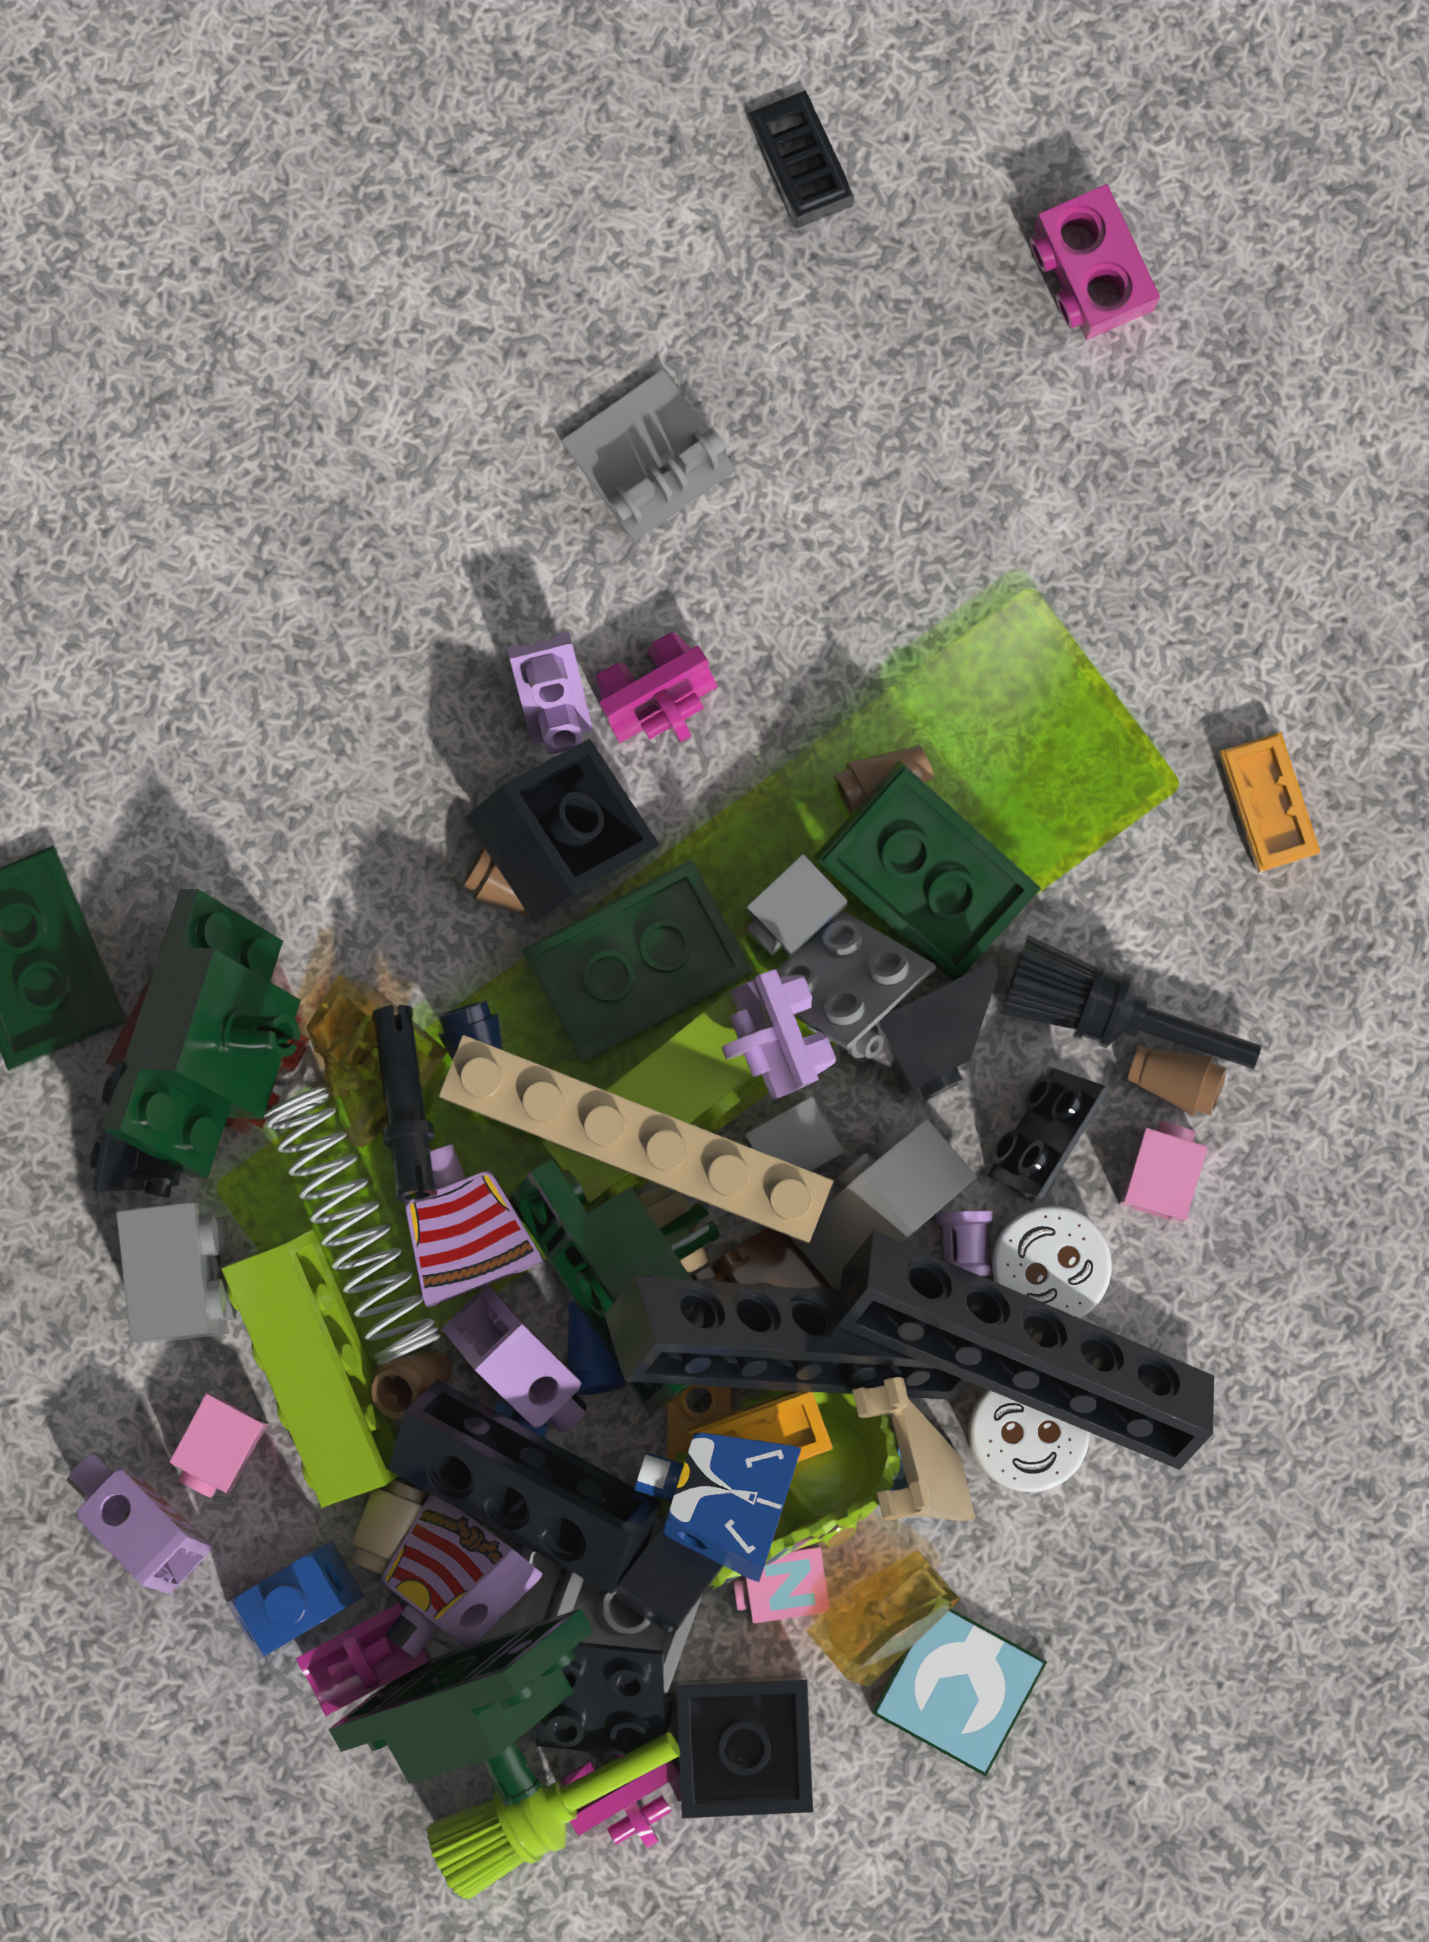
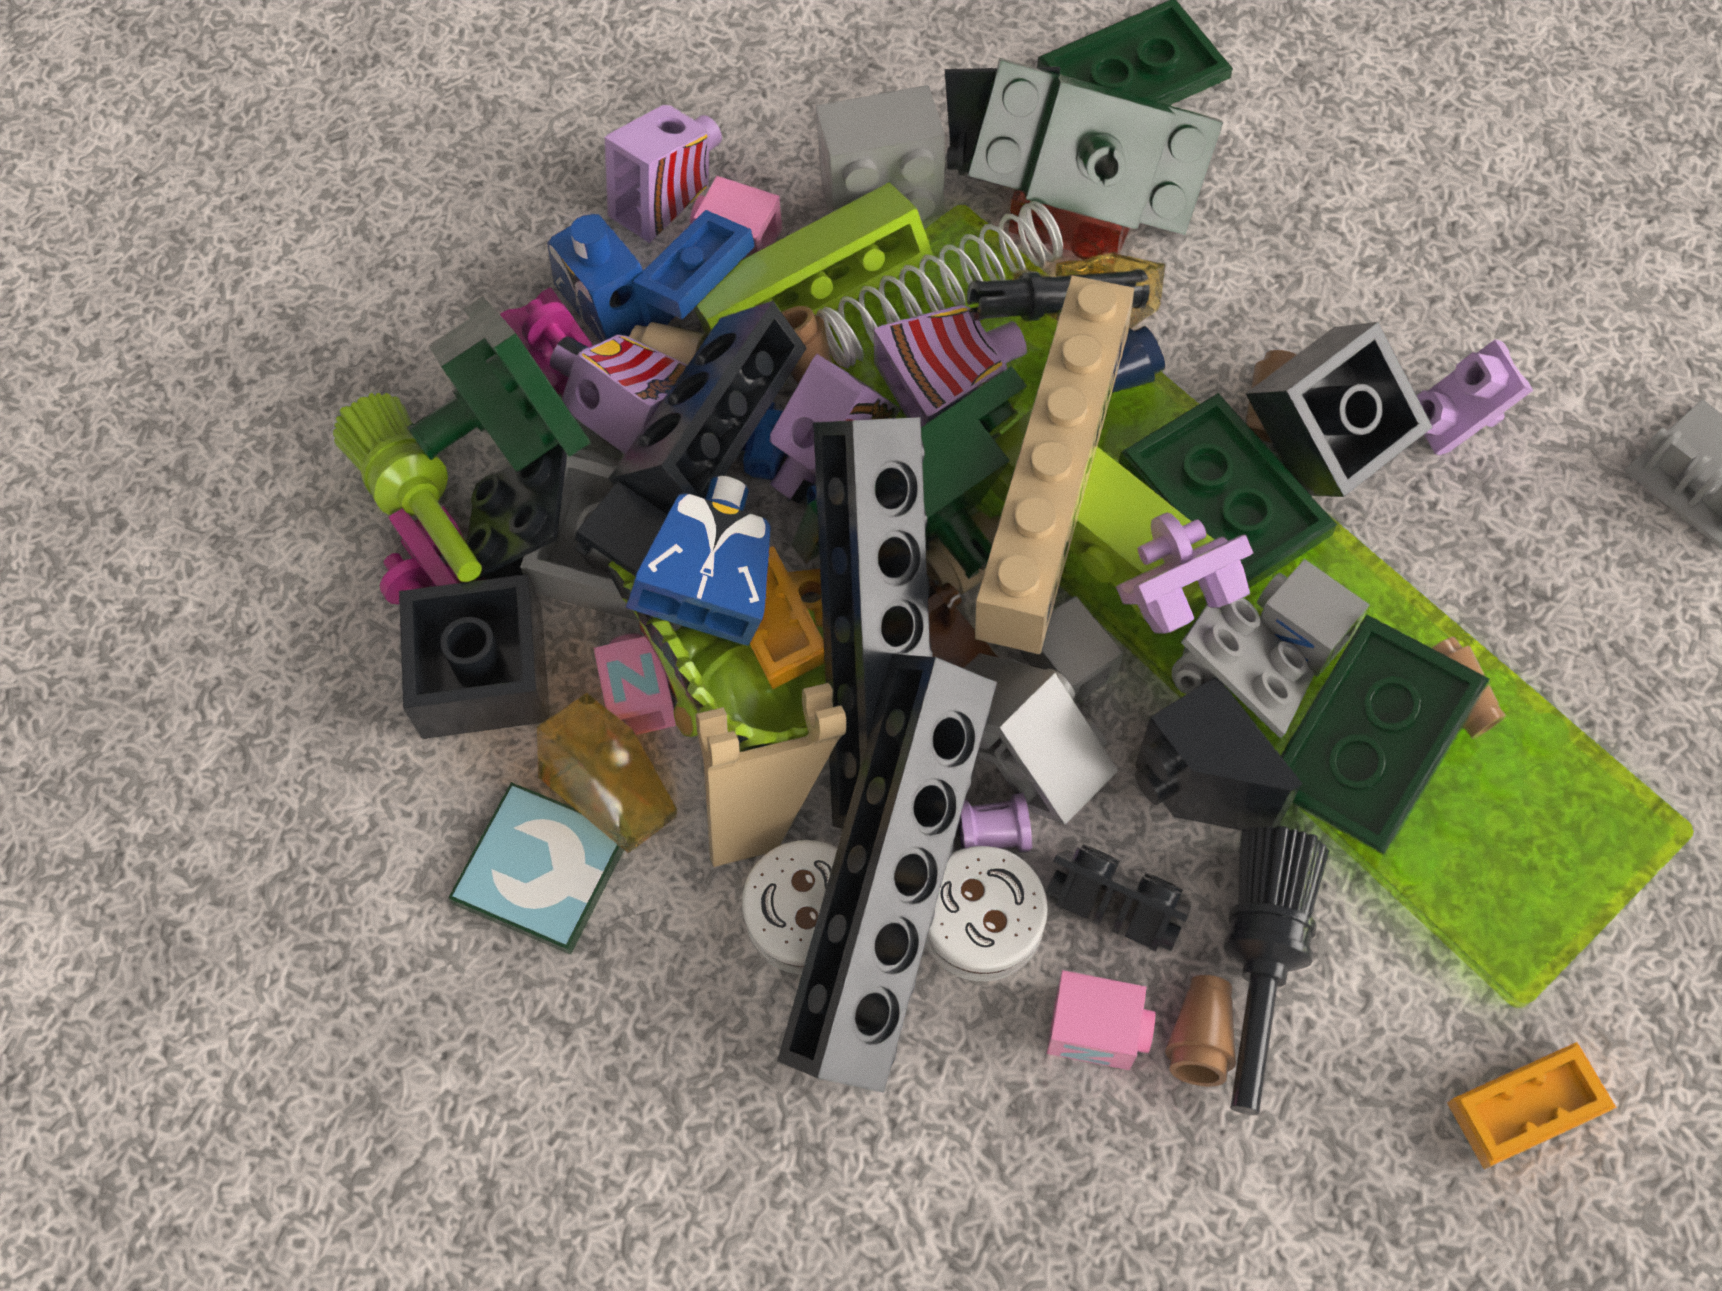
camera: 90 degrees right, 20 degrees down
(302, 1495) = (691, 267): none -> blue panel
(662, 696) = (1487, 495): dark pink hips -> none

